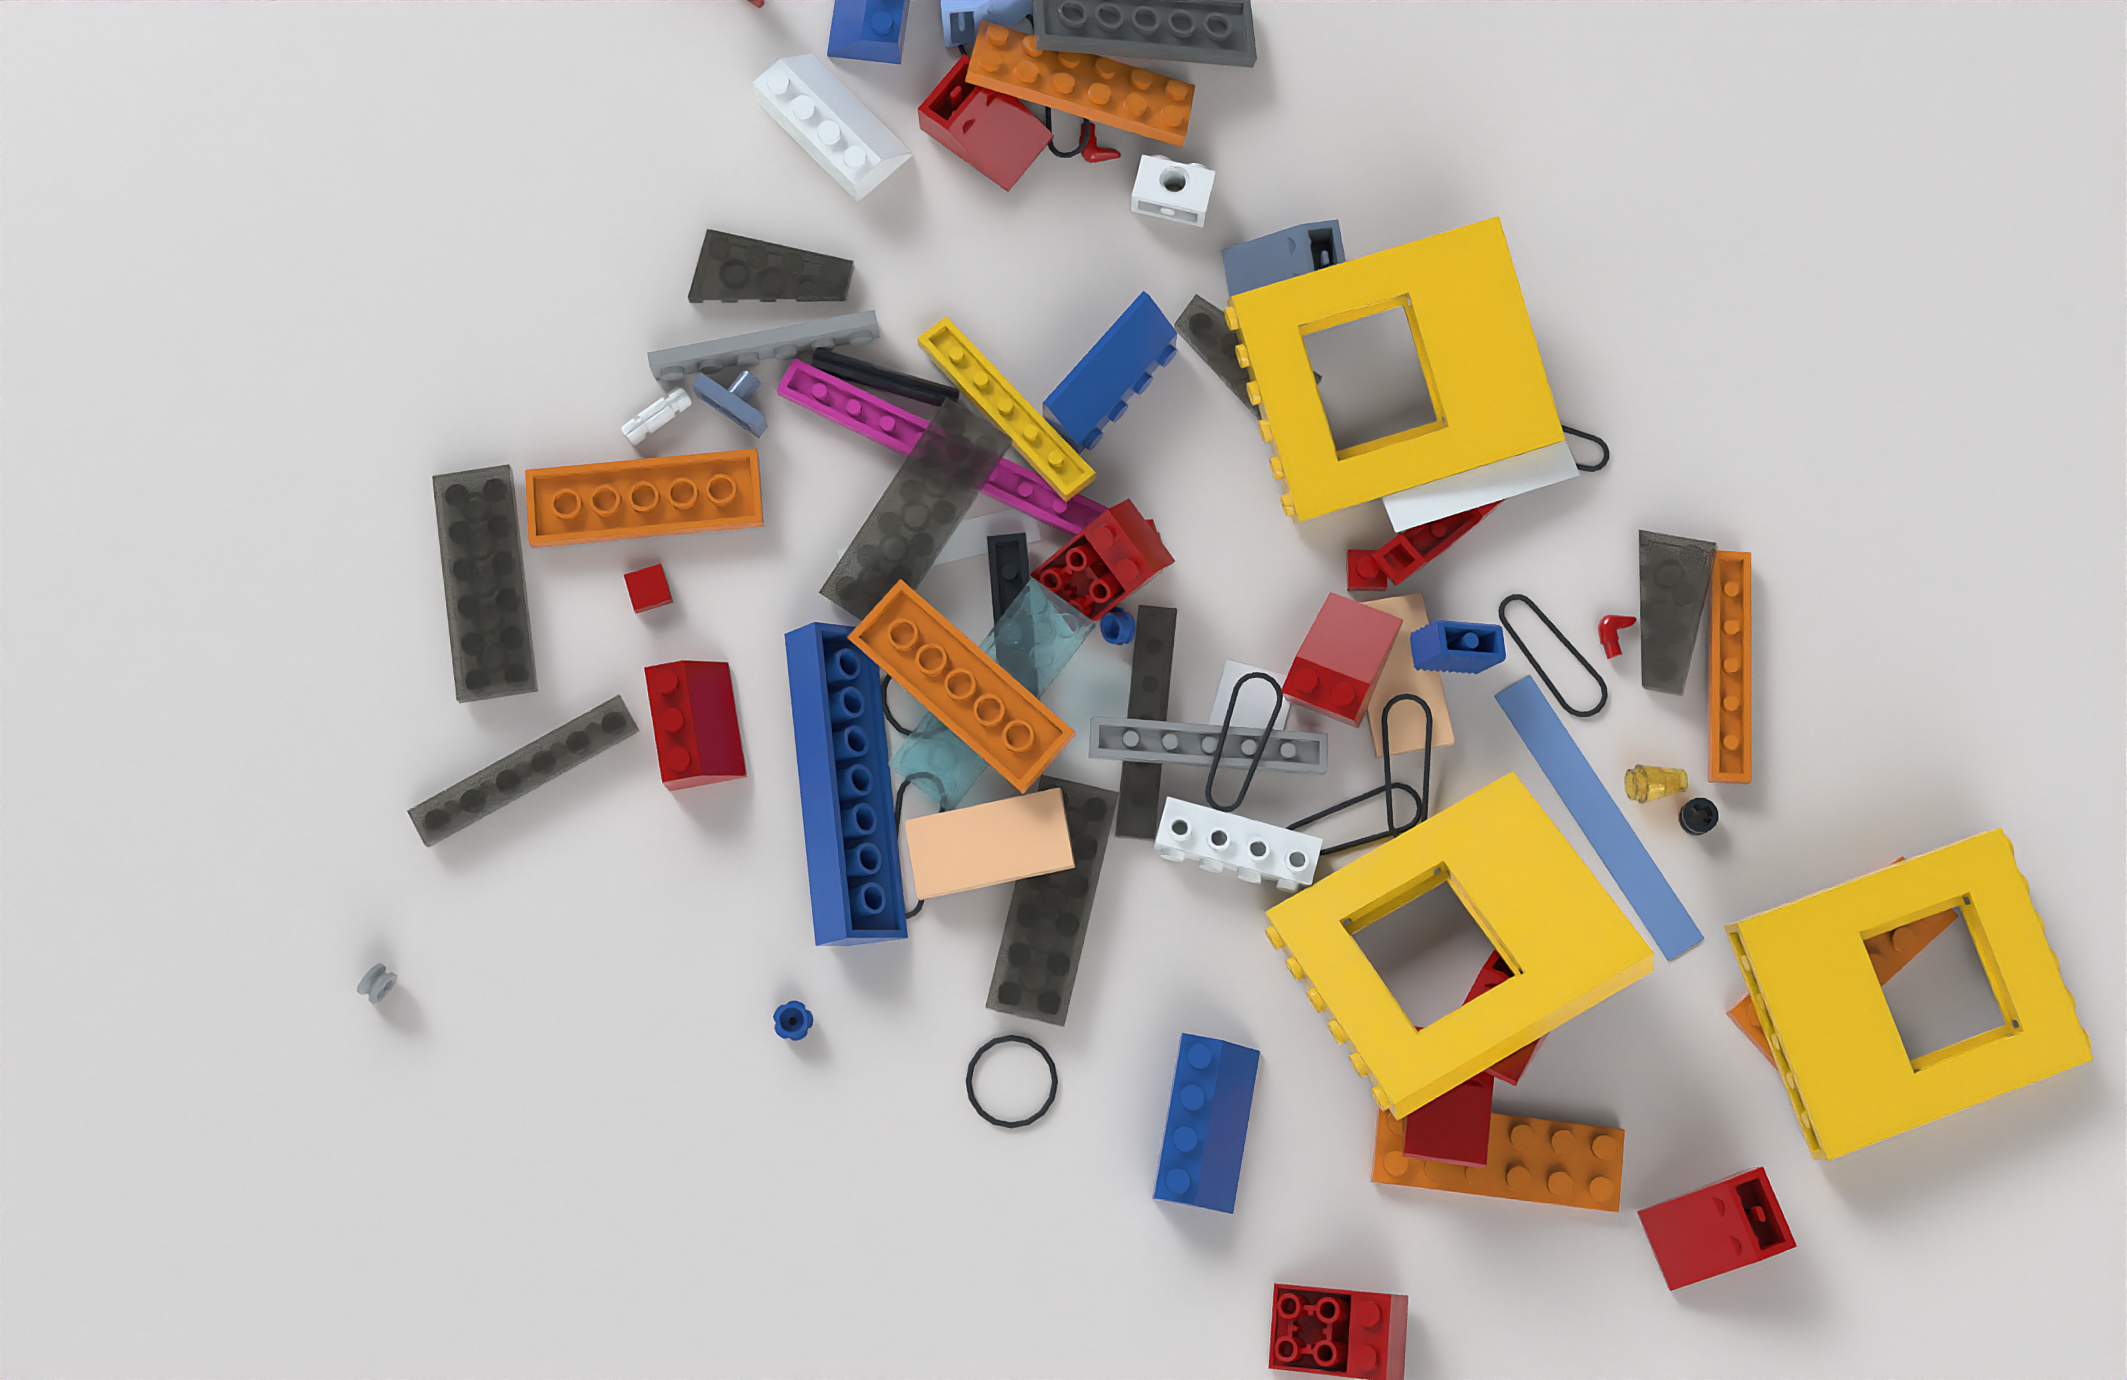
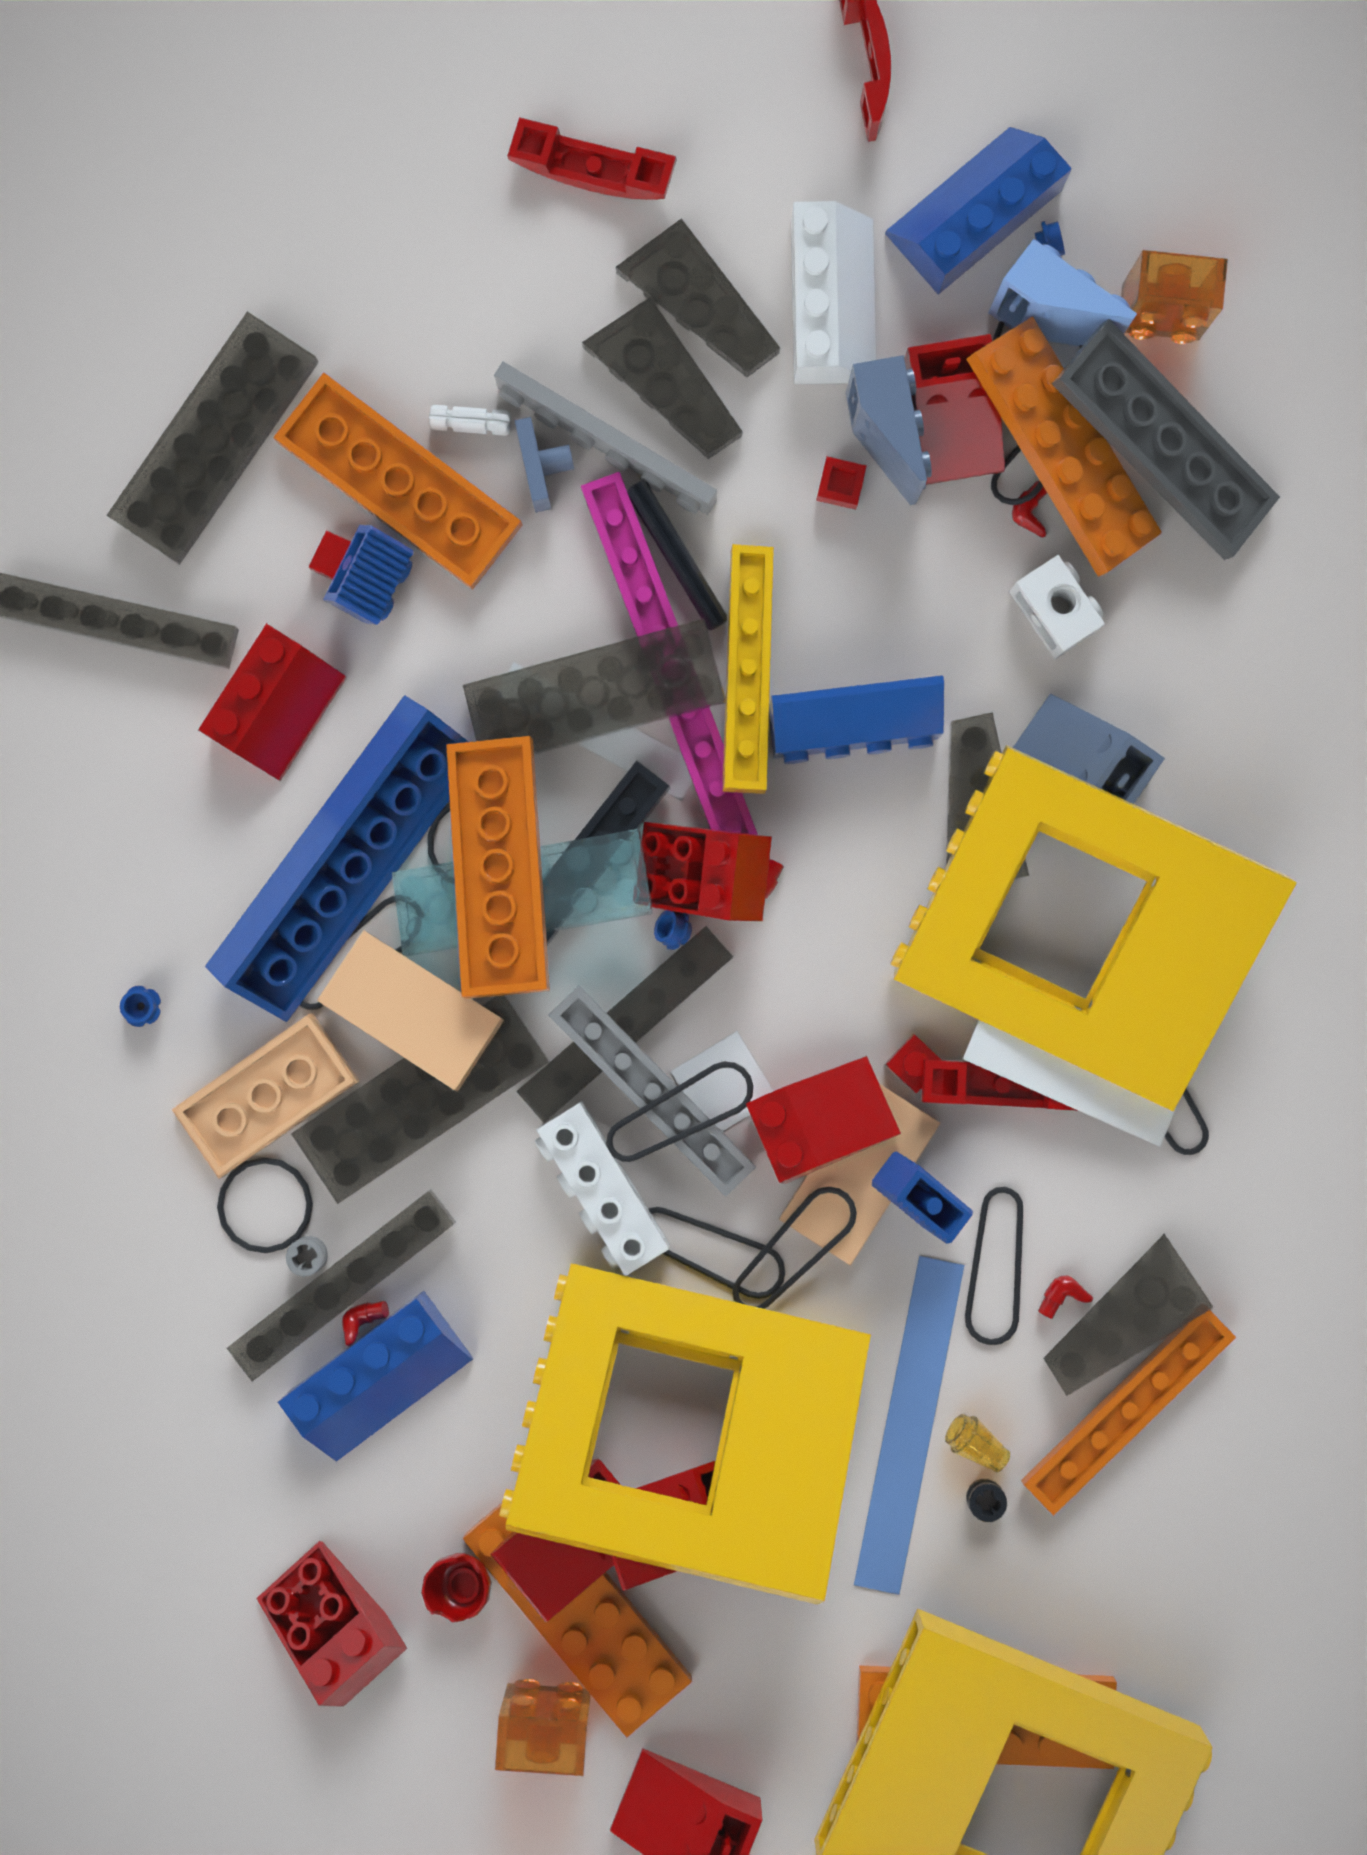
camera: 45 degrees right, 10 degrees up
(586, 179) = (590, 165): none -> red slope
(684, 576) = (369, 575): none -> blue brick
(741, 200) = (693, 289): none -> clear smoke wing
(940, 1002) = (265, 1095): none -> light nougat tile
(951, 170) = (887, 423): none -> sand blue slope
(952, 236) = (841, 483): none -> red plate
(1087, 1083) = (296, 1248): none -> light grey bush
(1119, 1083) = (341, 1285): none -> clear smoke plate
(1153, 1092) = (360, 1315): none -> red animal
(1402, 1215) = (456, 1587): none -> red hair
(1555, 1251) = (543, 1728): none -> clear orange brick

